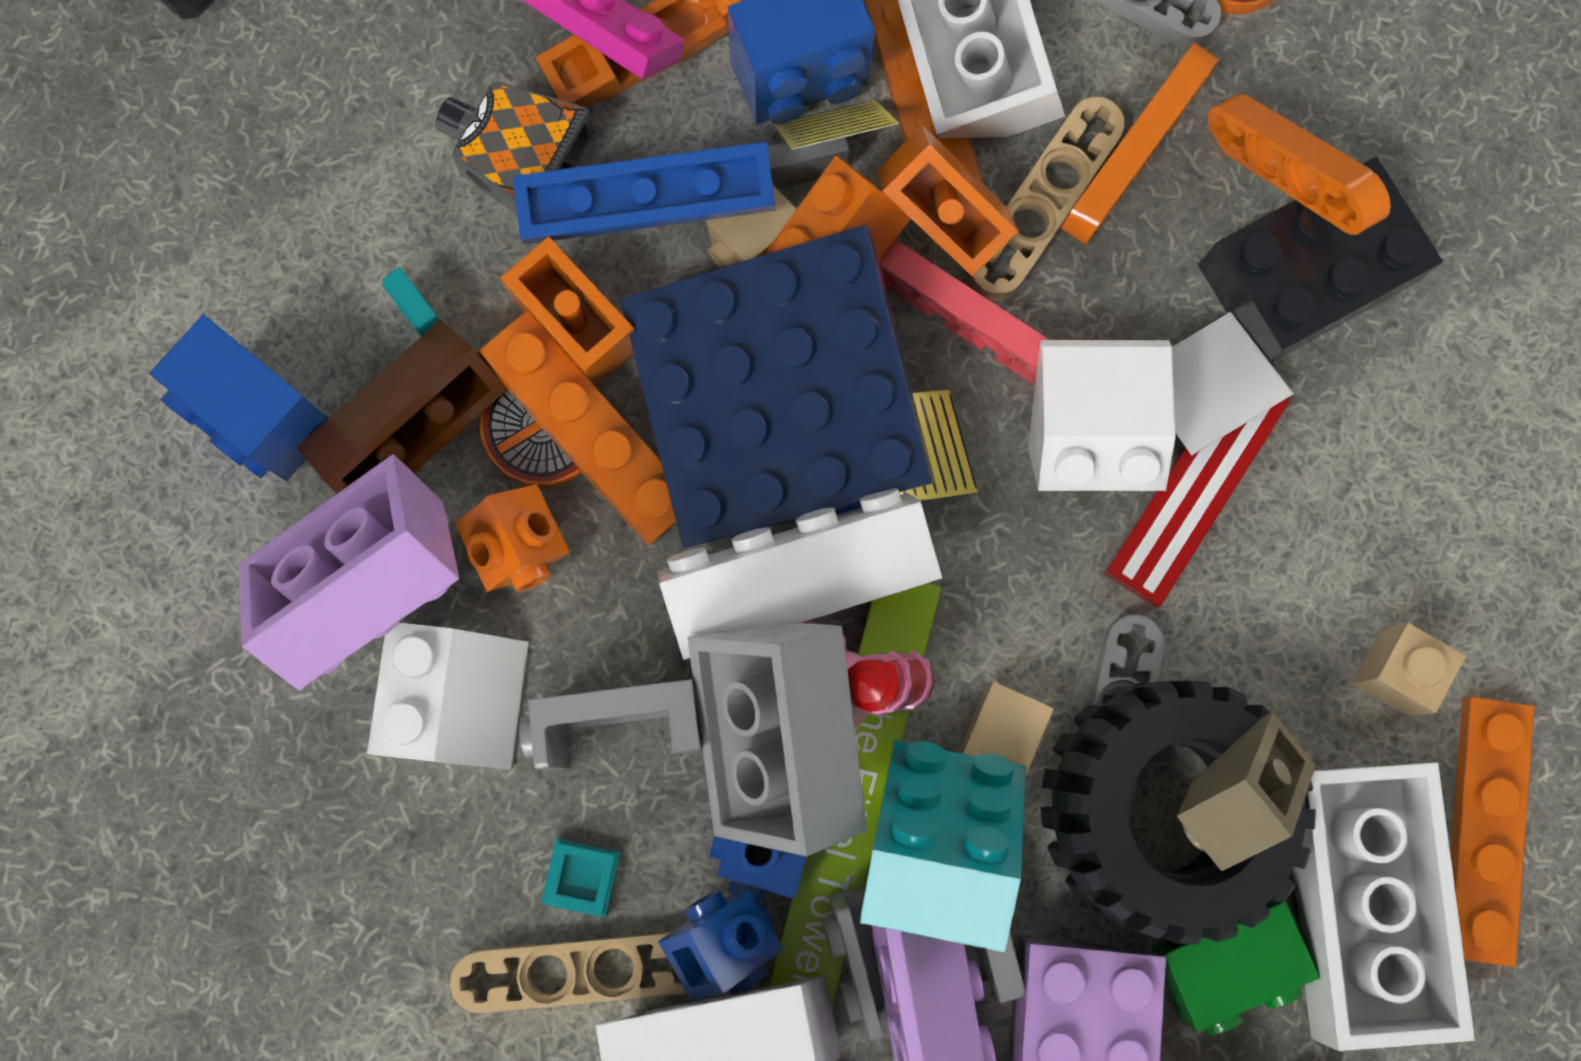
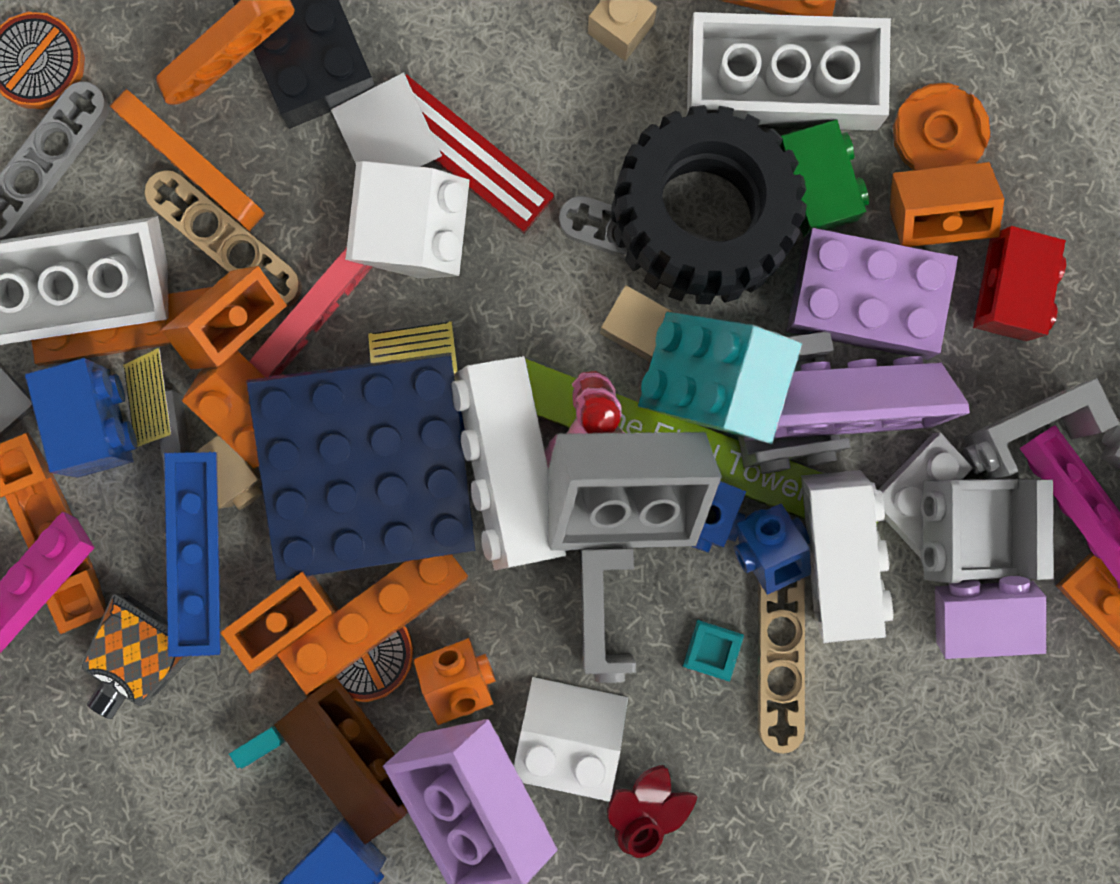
camera: 85 degrees left, 5 degrees up
(360, 809) = (648, 812): none -> dark red plate
(1248, 795) = (706, 154): dark tan slope -> none

